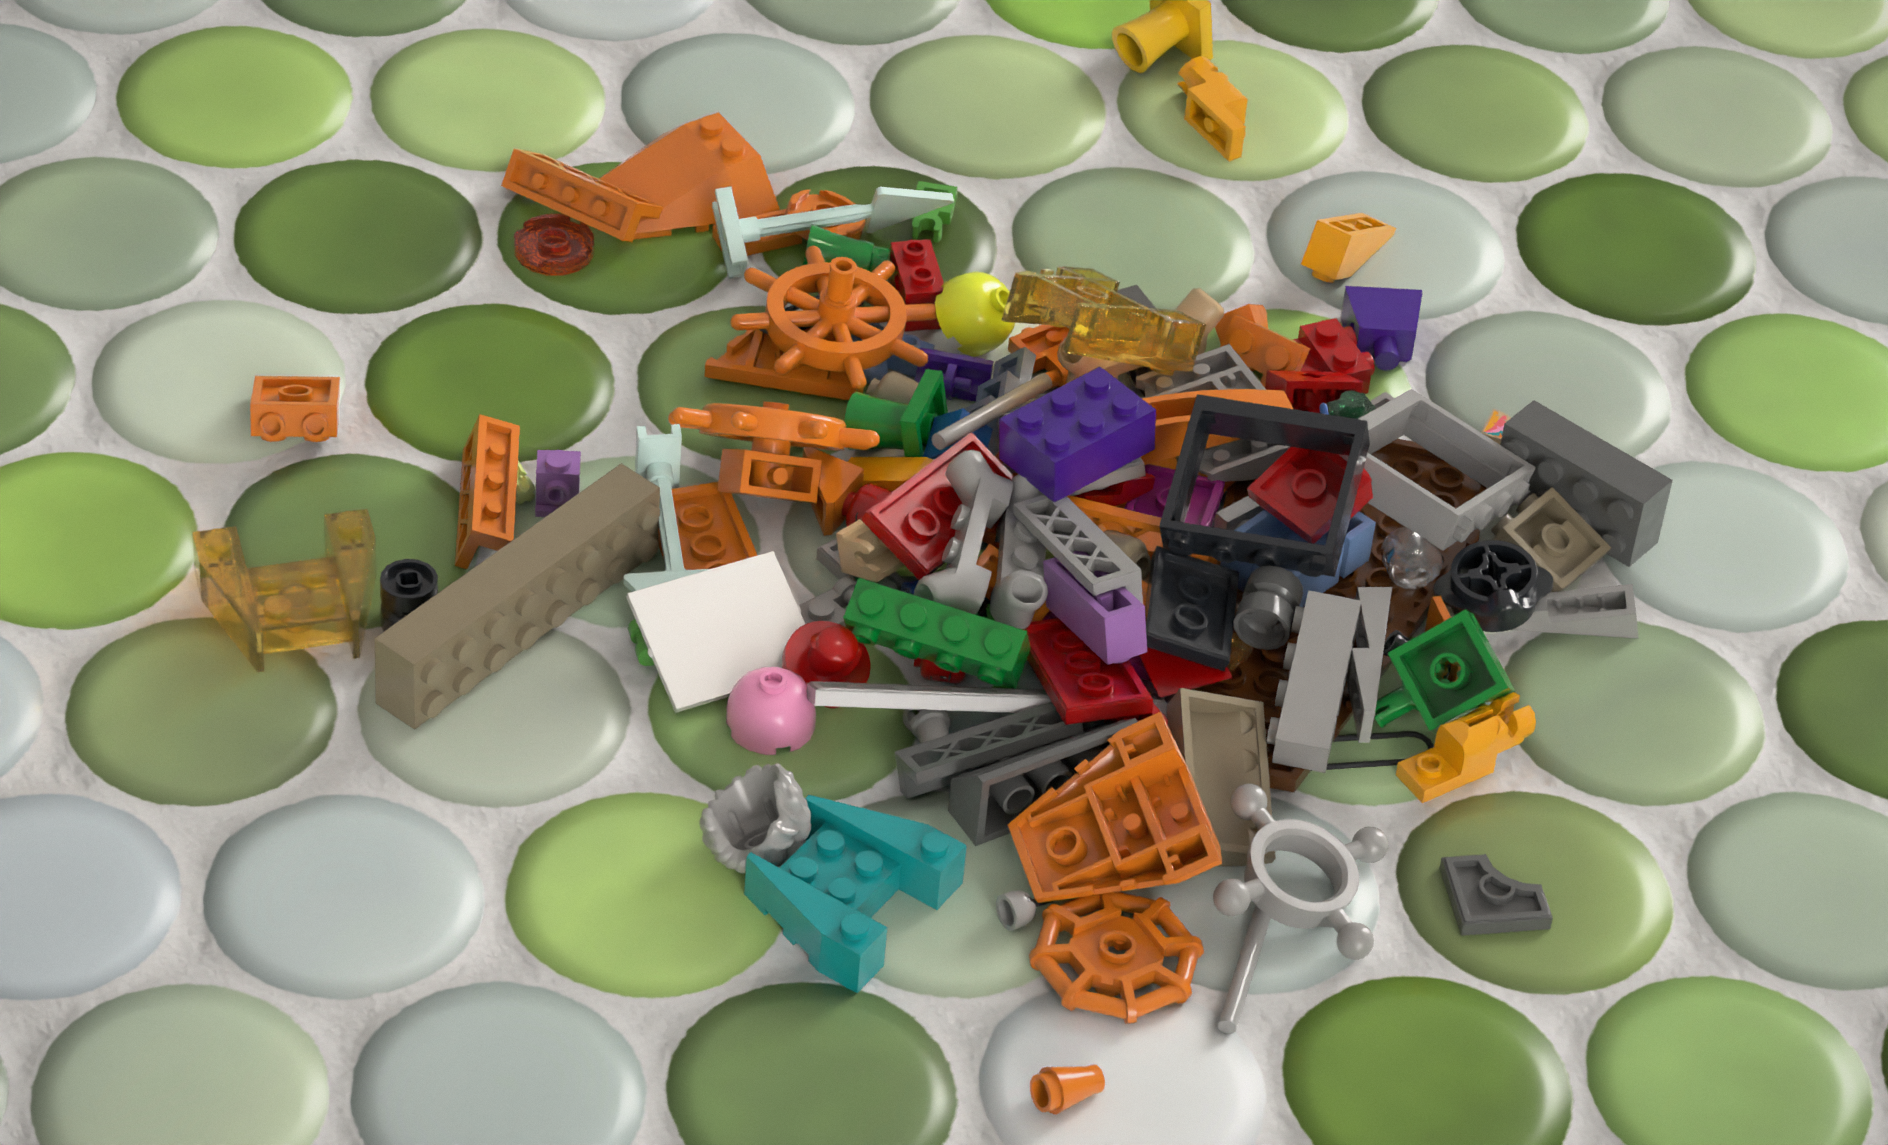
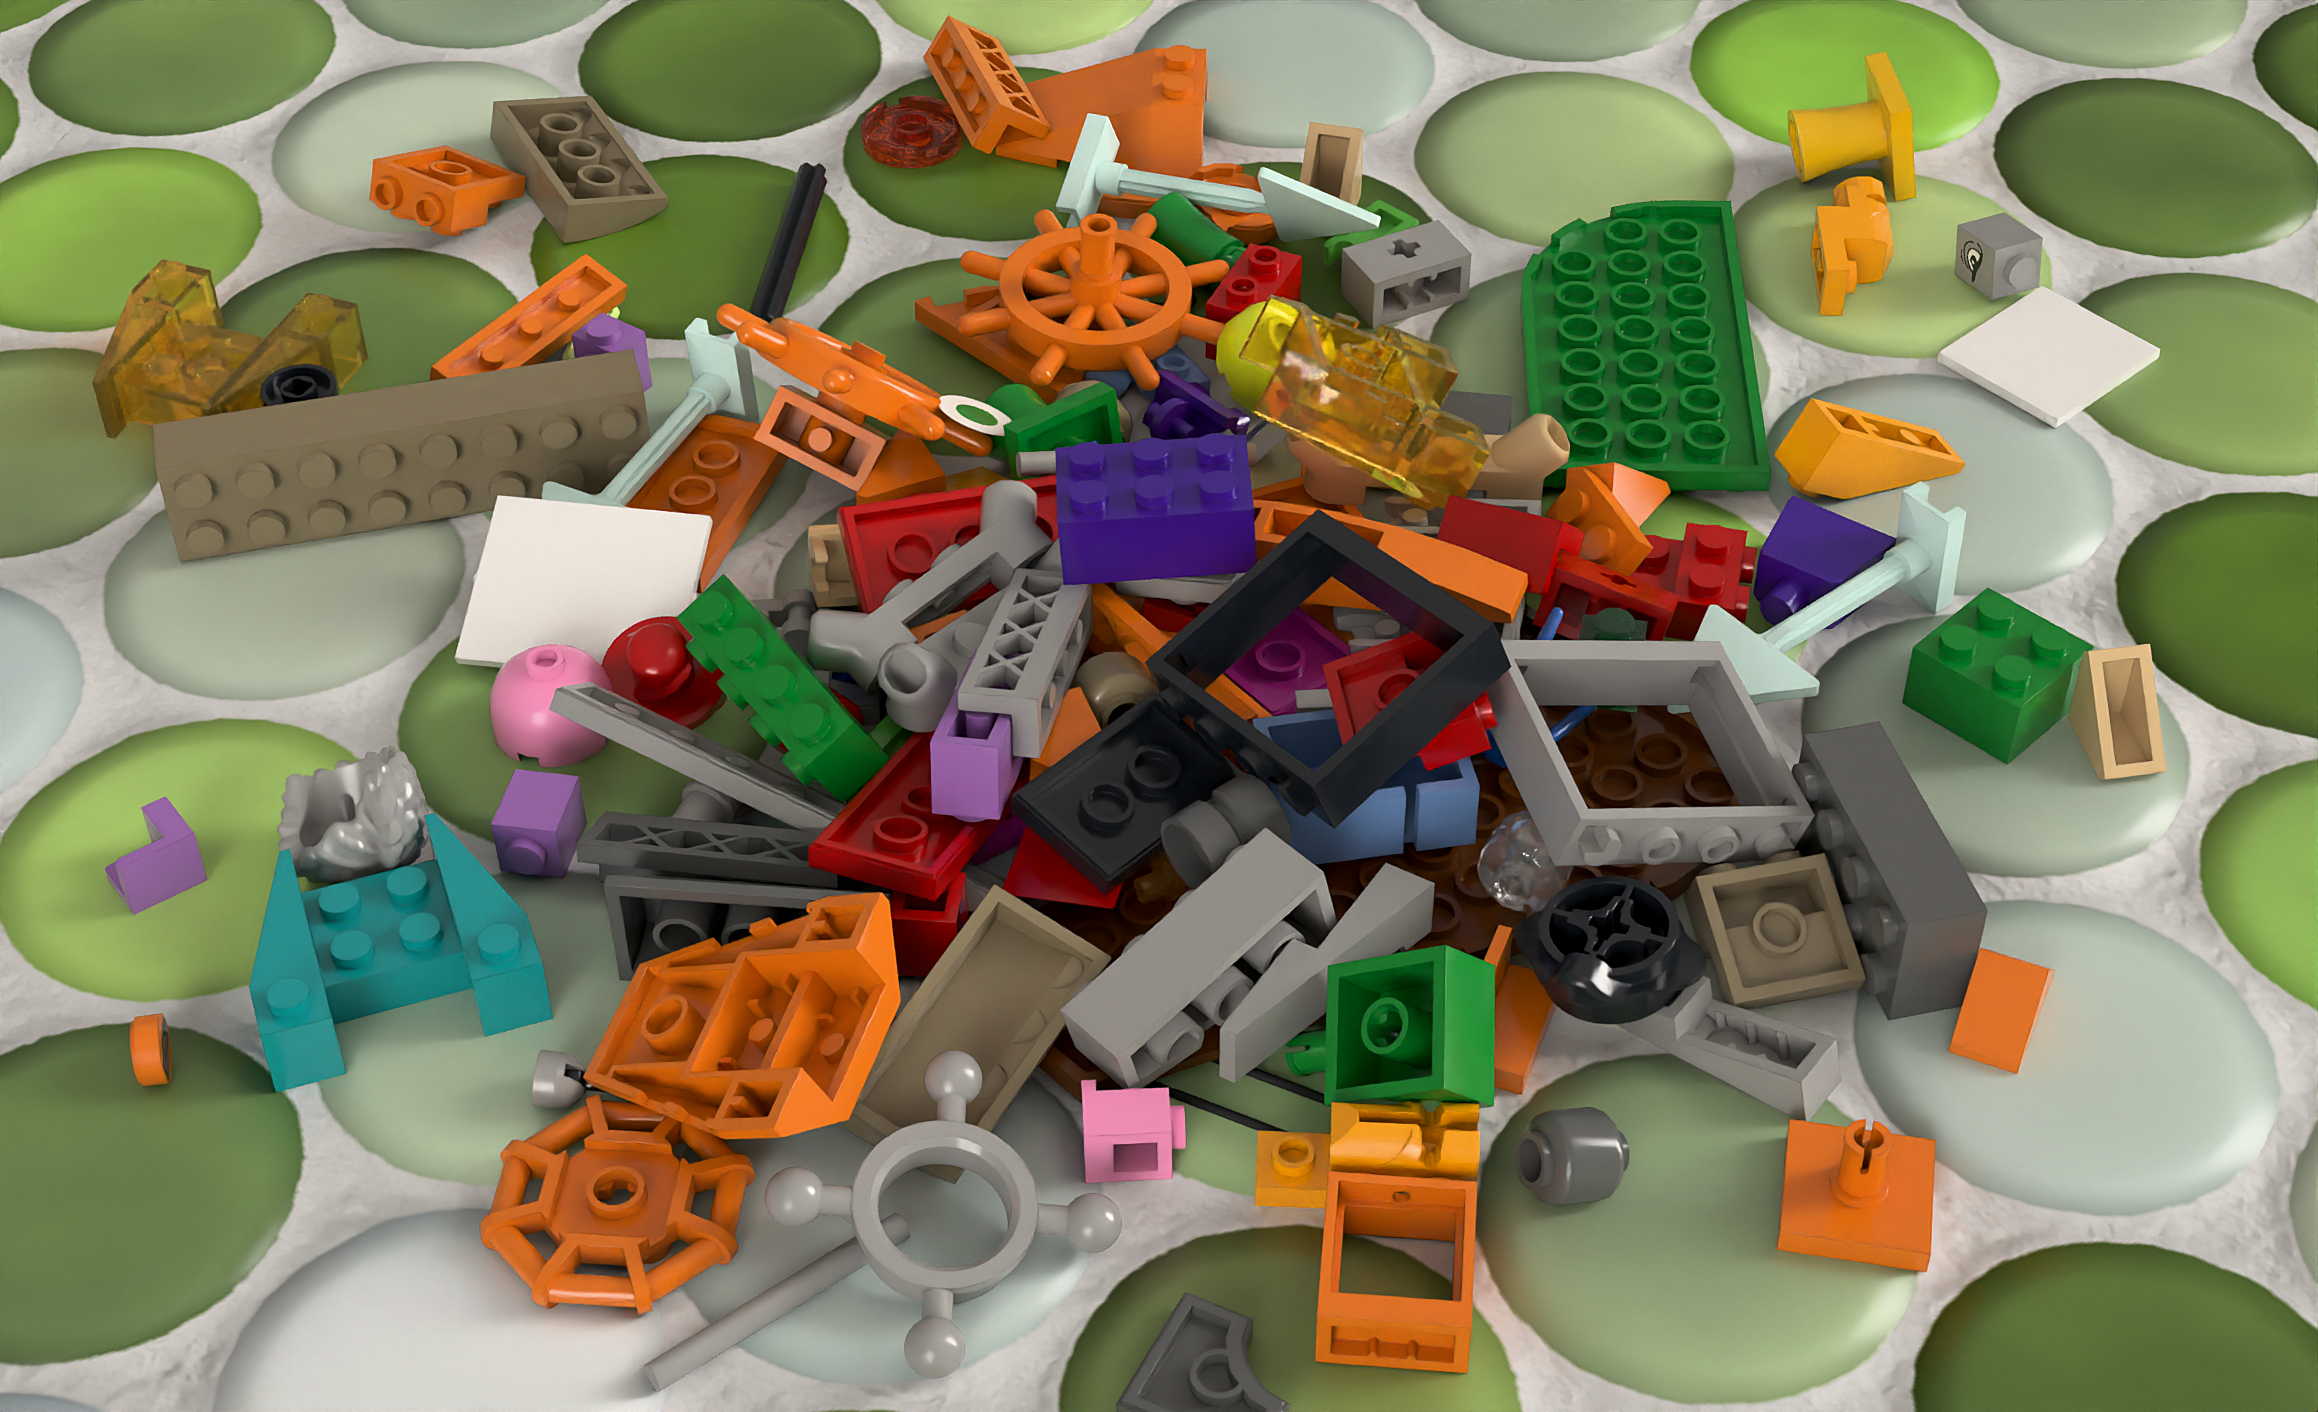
camera: 40 degrees right, 0 degrees up
(363, 355) = (575, 165): none -> dark tan slope
(569, 360) = (789, 242): none -> black axle
(645, 900) = (160, 868): none -> medium lavender panel
(779, 999) = (151, 1050): none -> orange tile
(849, 775) = (539, 823): none -> medium lavender brick
(865, 421) = (974, 414): none -> white sticker
(870, 167) = (1334, 161): none -> tan slope
(980, 227) = (1405, 274): none -> light grey brick
(1063, 1087) = (346, 1345): orange cone -> none
(1159, 217) = (1647, 346): none -> green plate
(1251, 371) = (1510, 538): none -> red panel
(1307, 83) = (1998, 256): none -> light grey brick
(1337, 793) = (1130, 1133): none -> bright pink brick
(1377, 139) = (2048, 356): none -> white piece
(1440, 305) = (1919, 565): none -> light aqua piece
(1532, 350) = (1995, 675): none -> green brick
(1549, 830) = (1394, 1328): none -> orange window
(1561, 702) = (1572, 1156): none -> dark grey head
(1607, 348) = (2118, 712): none -> tan slope
(1686, 536) = (2000, 1010): none -> orange slope
(1696, 660) = (1857, 1194): none -> orange tile

